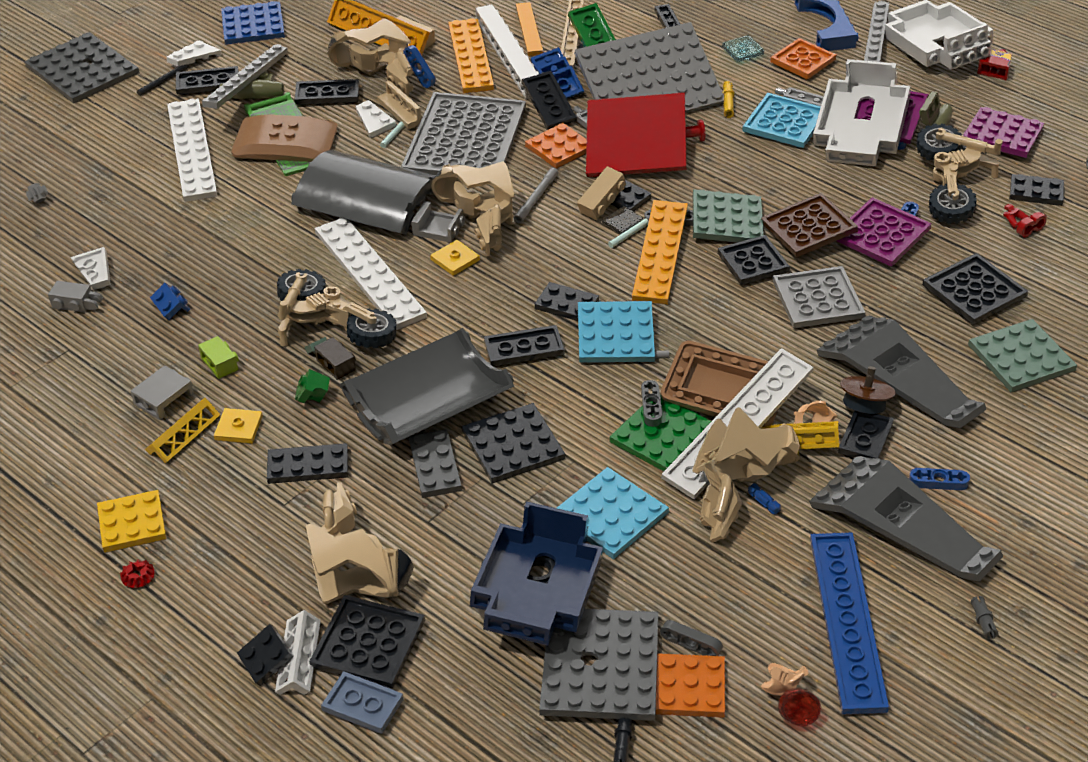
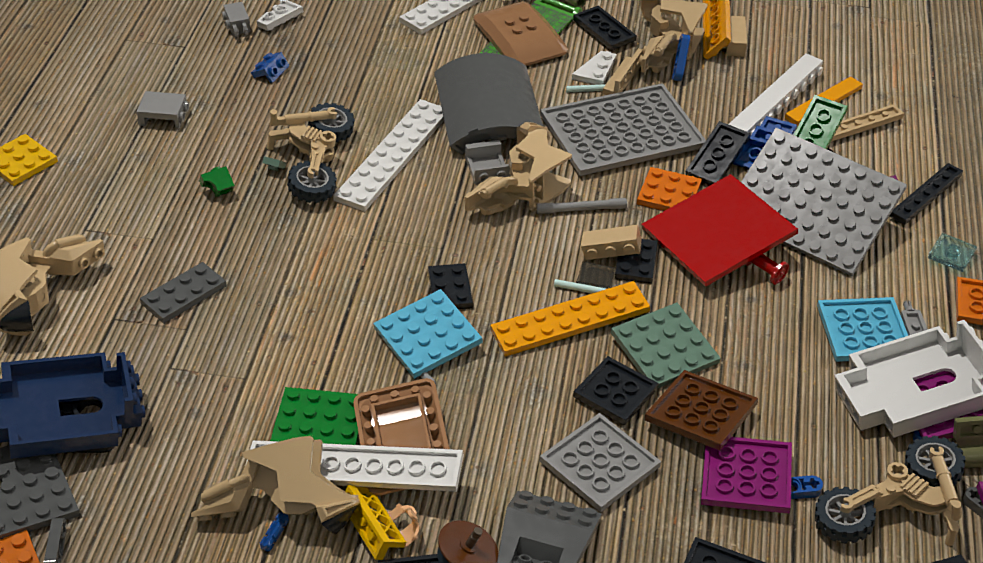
camera: 55 degrees right, 0 degrees up
(176, 427) = (129, 135): yellow fence -> none
(218, 357) = (222, 118): lime brick -> none
(238, 425) = (155, 165): yellow plate -> none
(307, 463) = (137, 221): black plate -> none
(335, 358) = (266, 179): dark brown brick -> none
(424, 387) = (261, 243): dark grey panel -> none
(455, 257) = (451, 193): yellow plate -> none
(470, 56) = (741, 85): light orange plate -> none
(513, 443) = (239, 329): black plate -> none
(524, 345) = (366, 283): black plate -> none
(615, 511) = (191, 429): medium azure plate -> none
(648, 409) = (328, 401): dark grey beam -> none
(728, 99) = (862, 271): yellow pin -> none

